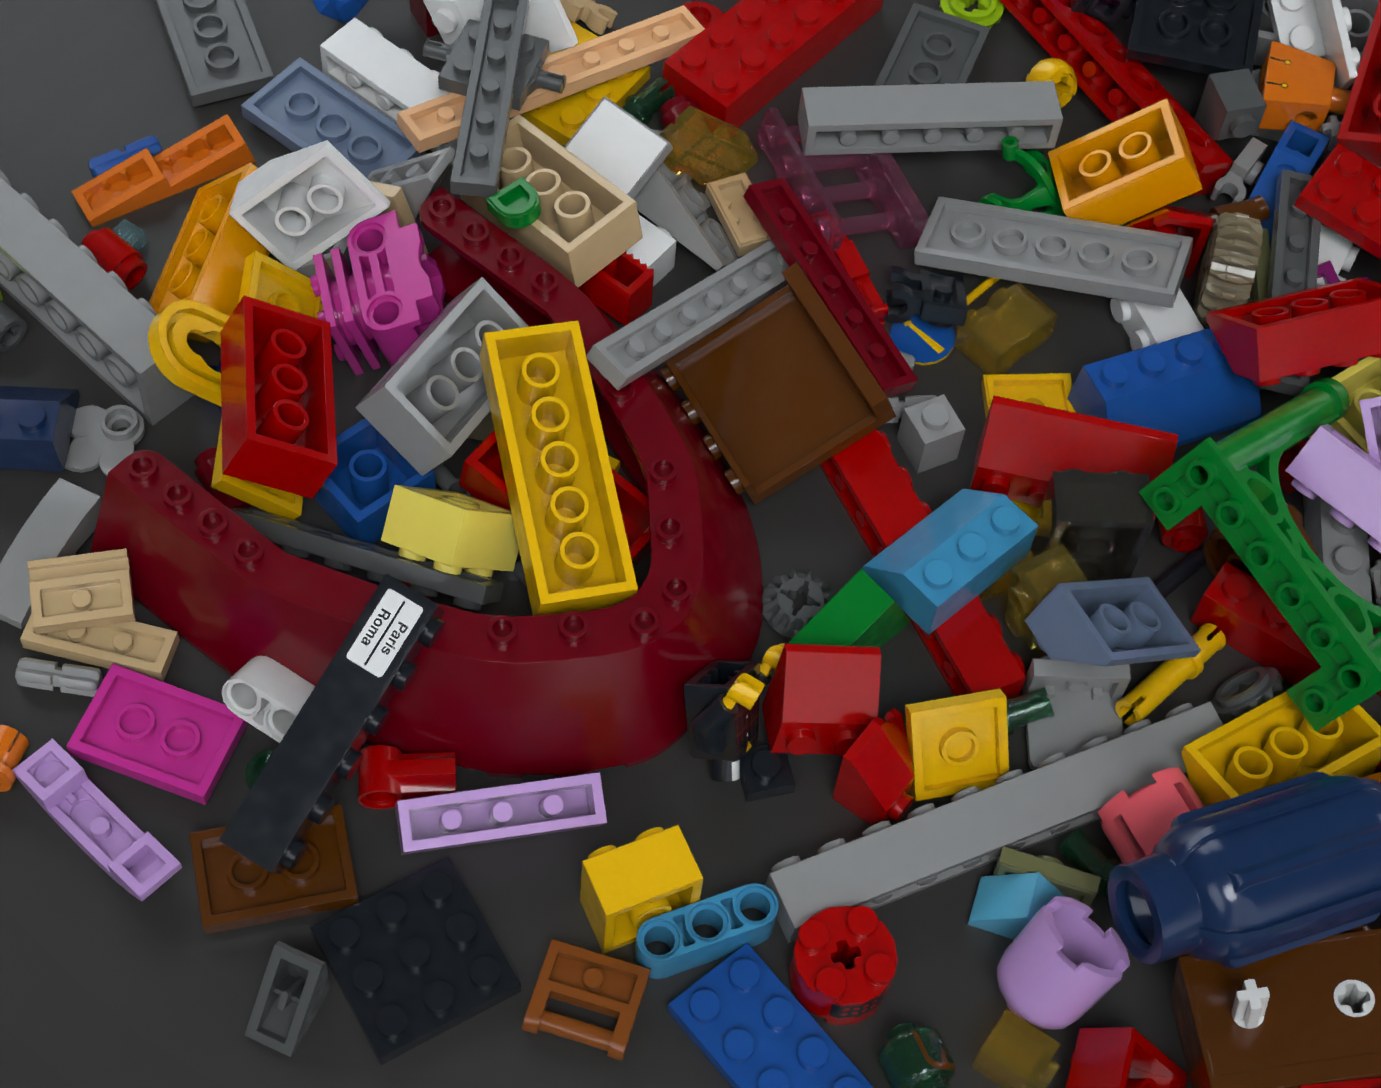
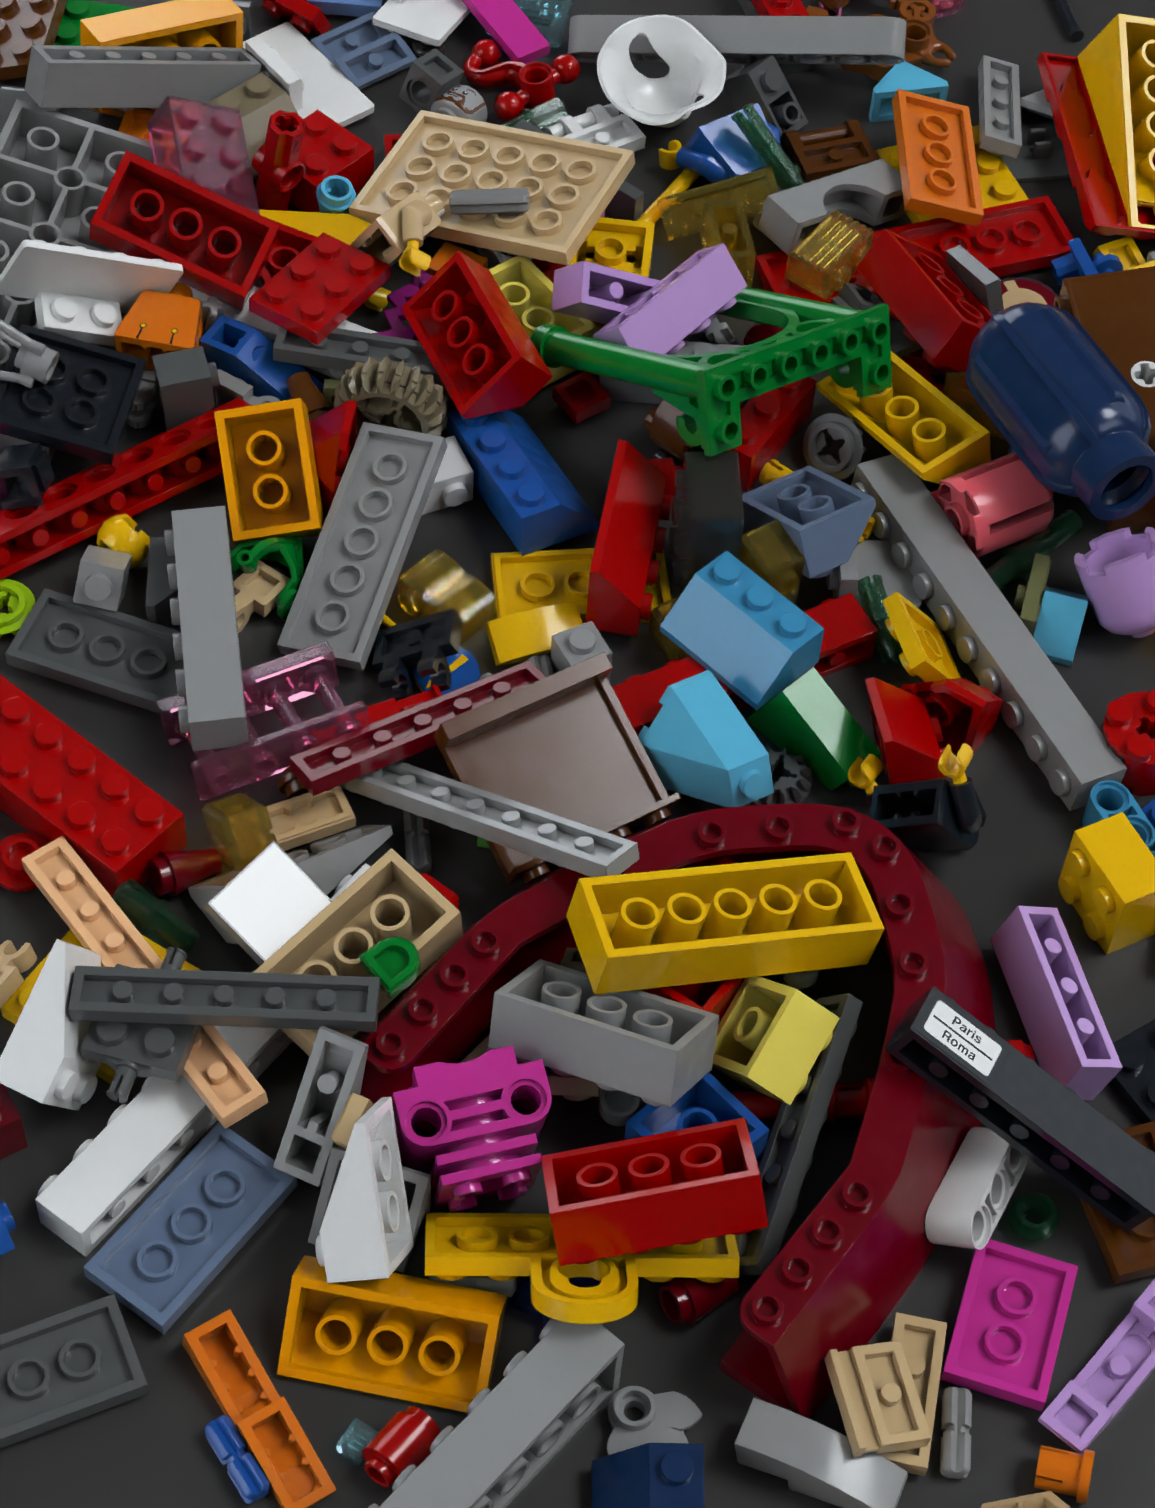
camera: 90 degrees left, 5 degrees down
(813, 521) = (706, 745): none -> medium azure slope
(965, 393) = (529, 632): none -> yellow slope
(999, 58) = (102, 578): none -> light grey brick
(1001, 179) = (257, 592): none -> tan plate

